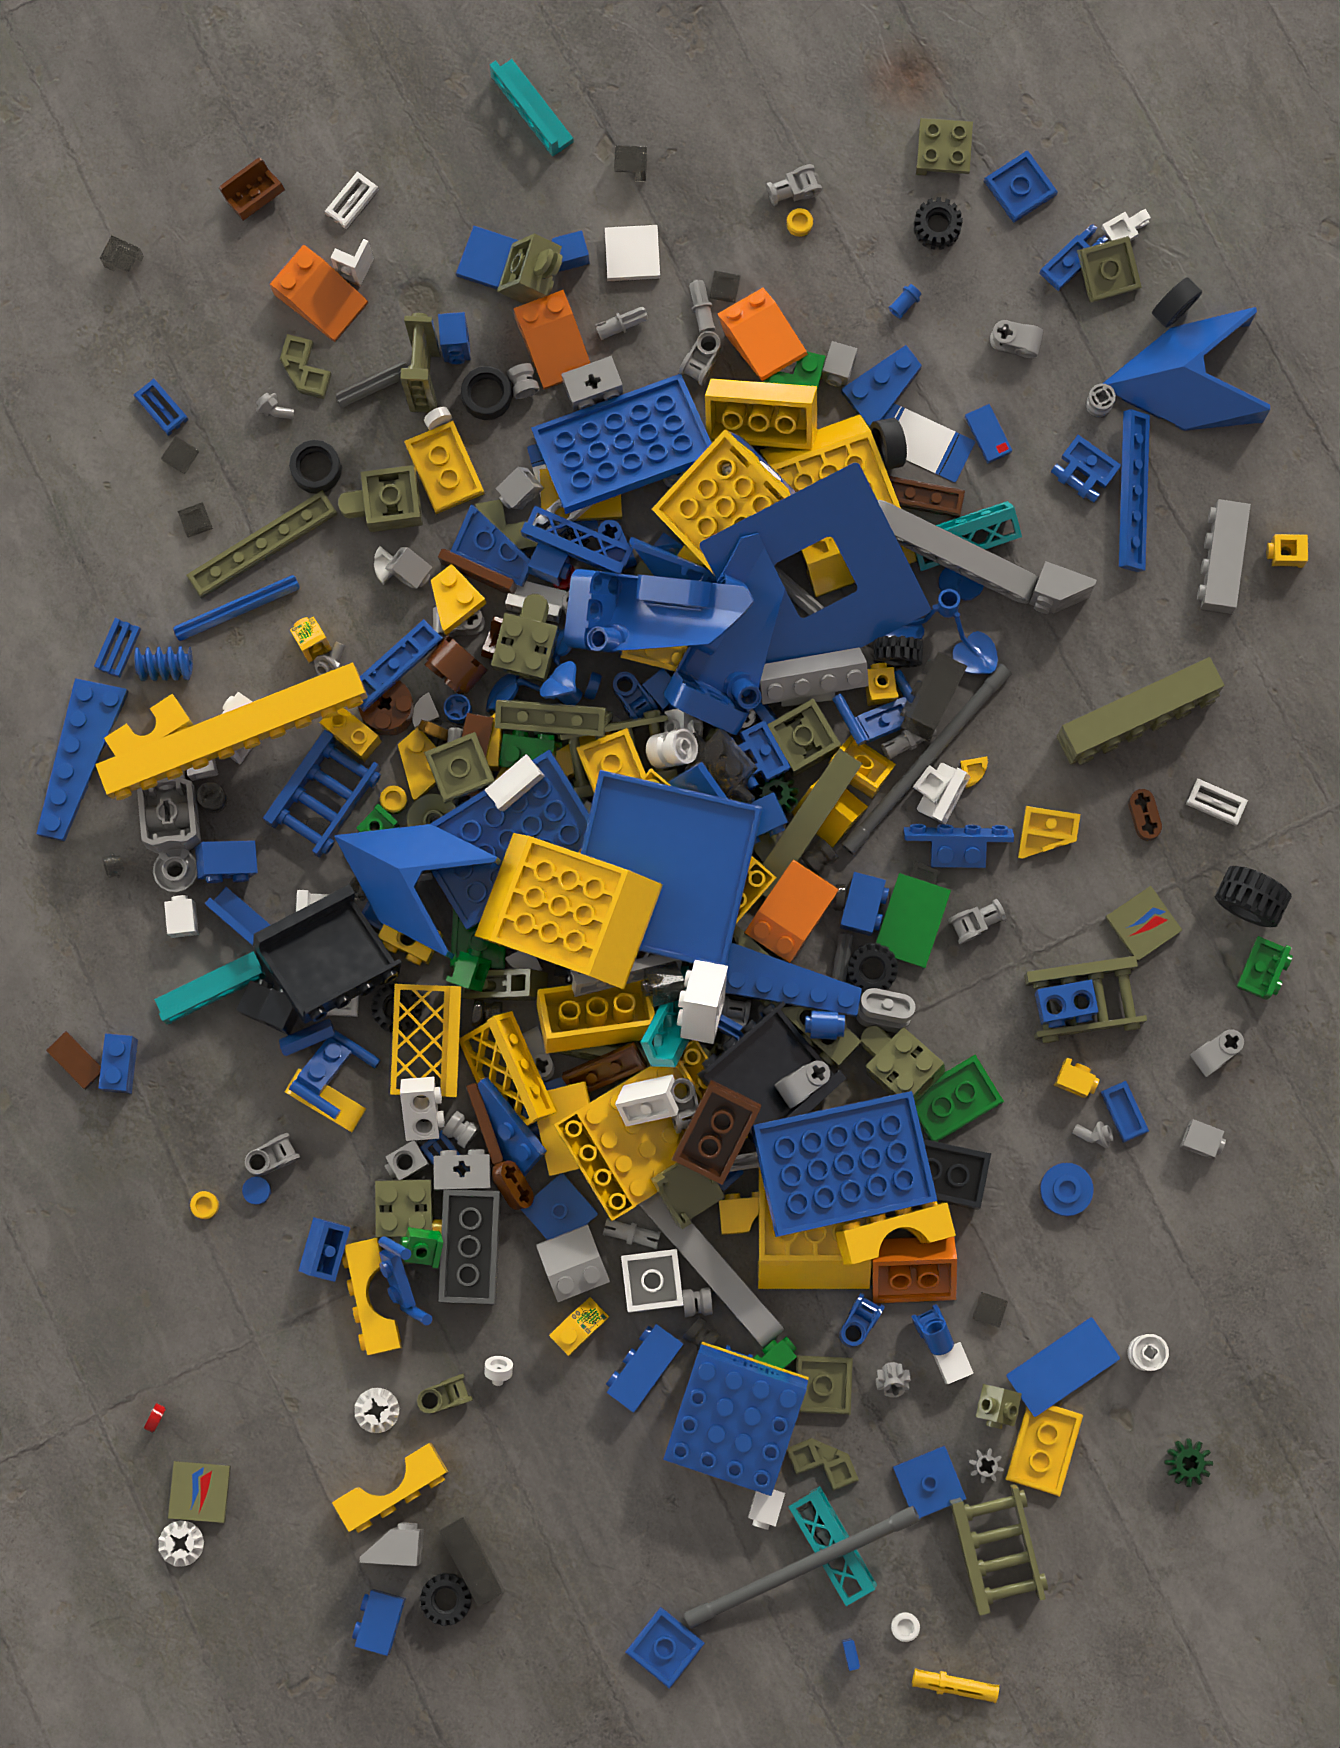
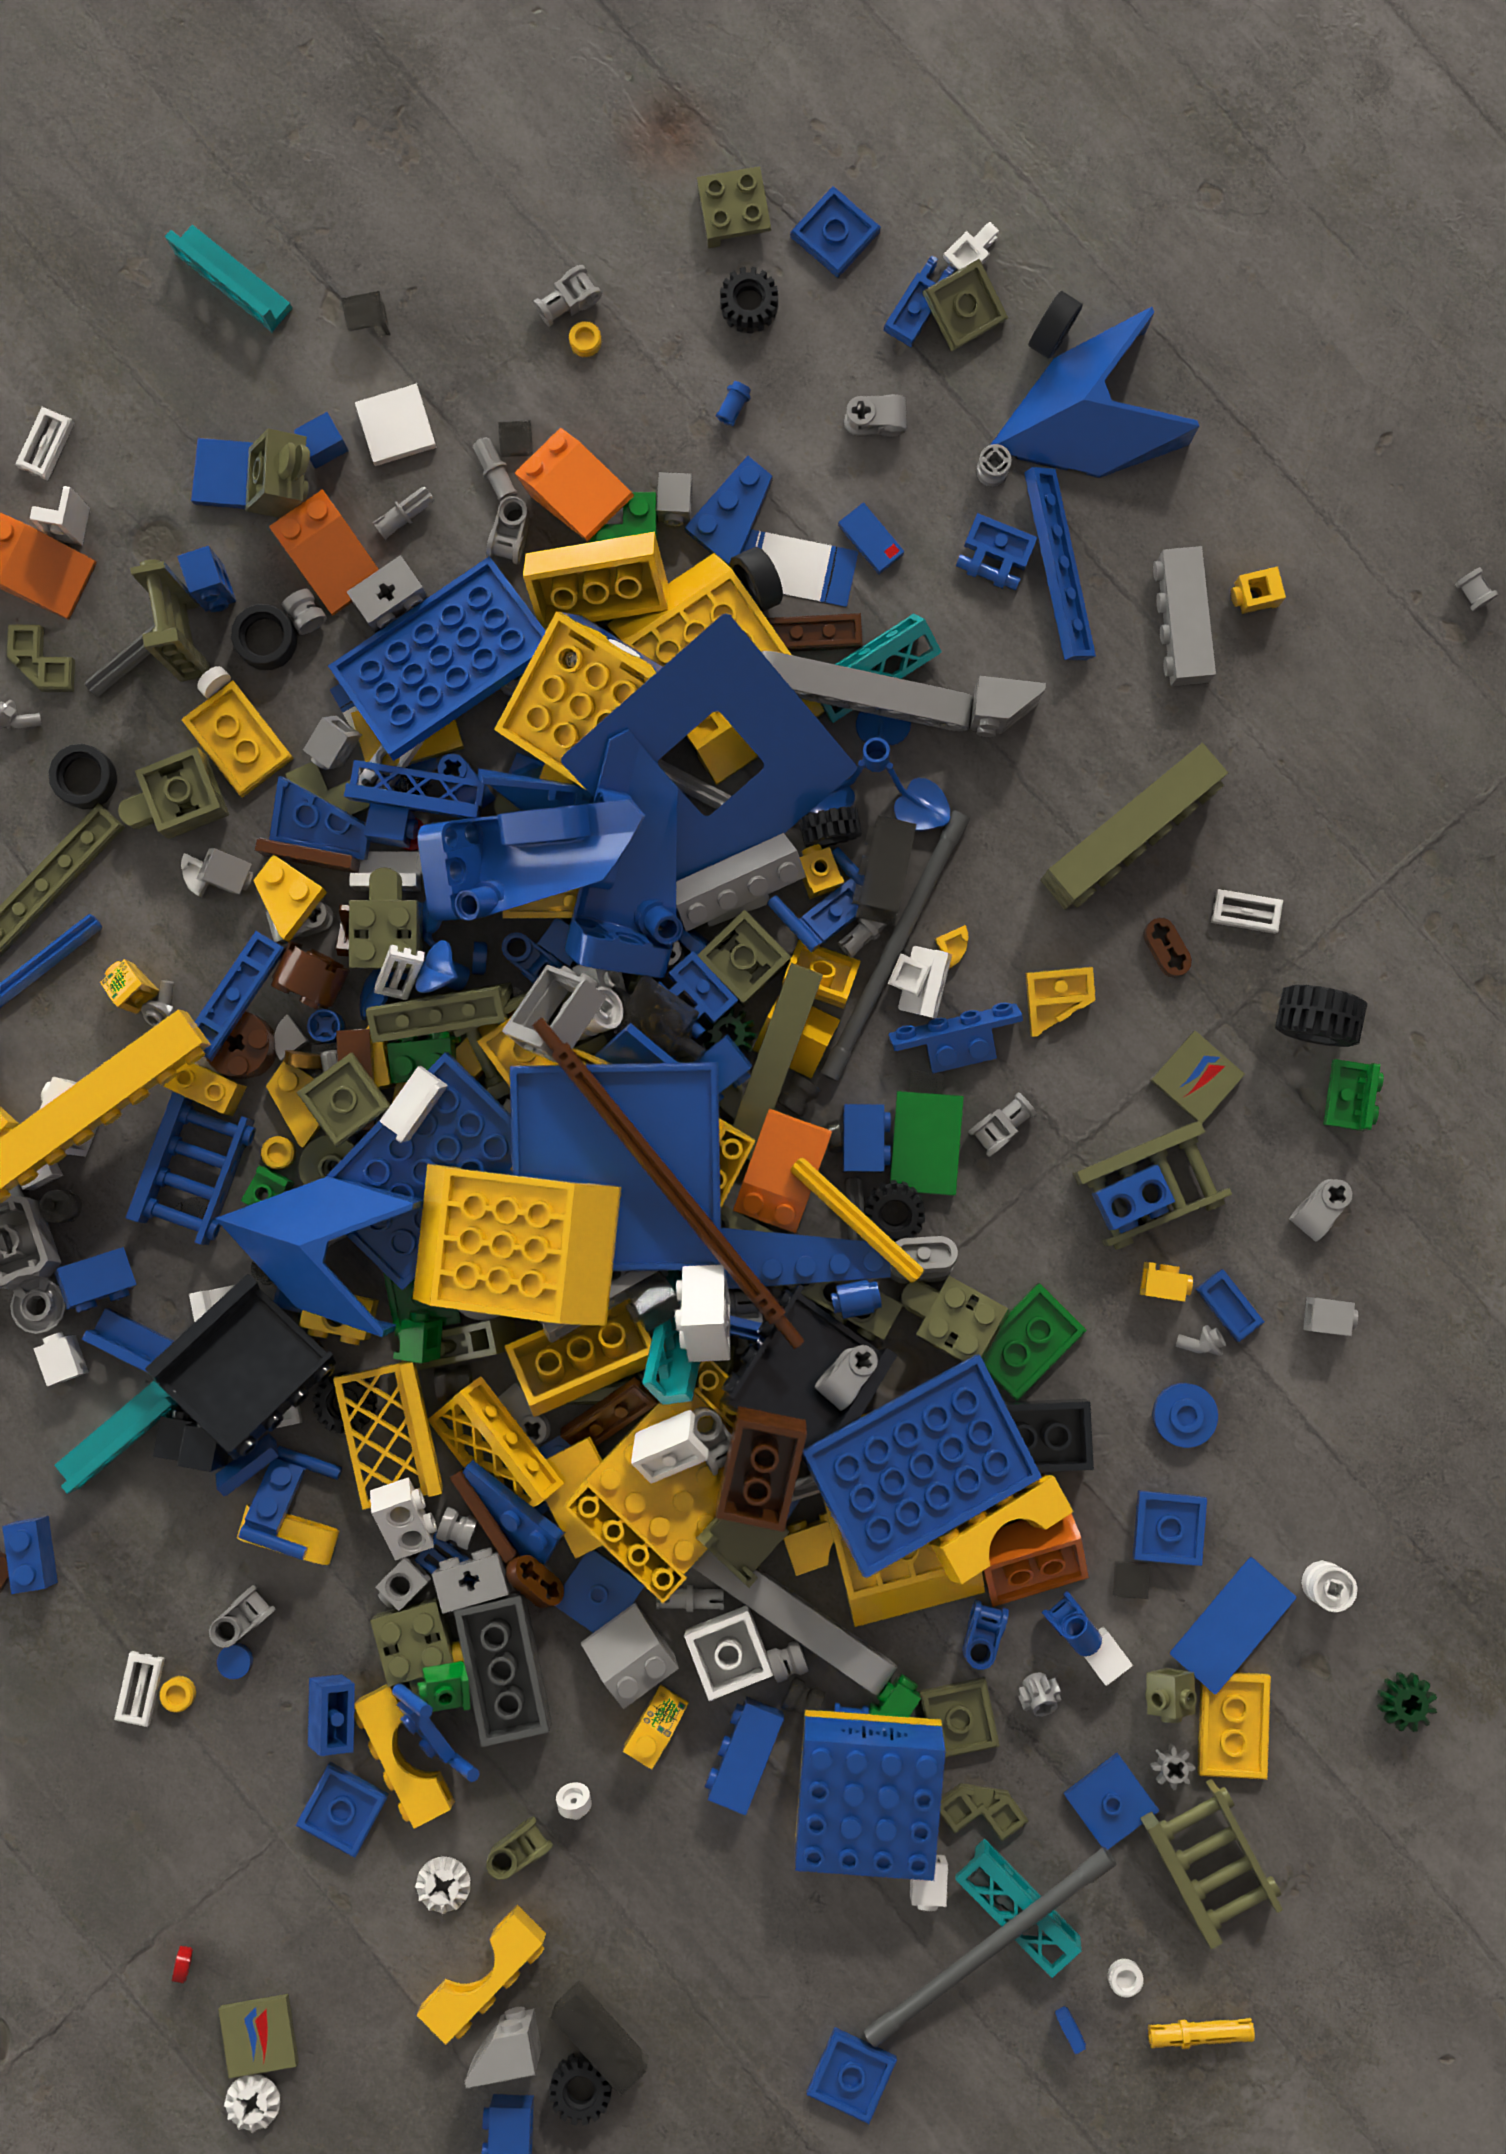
camera: 15 degrees left, 5 degrees up
(189, 1190) = (146, 1661): none -> white tile
(312, 1329) = (342, 1809): none -> blue plate
(537, 667) = (403, 959): none -> white tile
(637, 727) = (543, 1001): none -> light grey window
(700, 891) = (668, 1183): none -> reddish brown axle
(841, 962) = (857, 1220): none -> yellow axle
(1031, 1275) = (1169, 1528): none -> blue plate

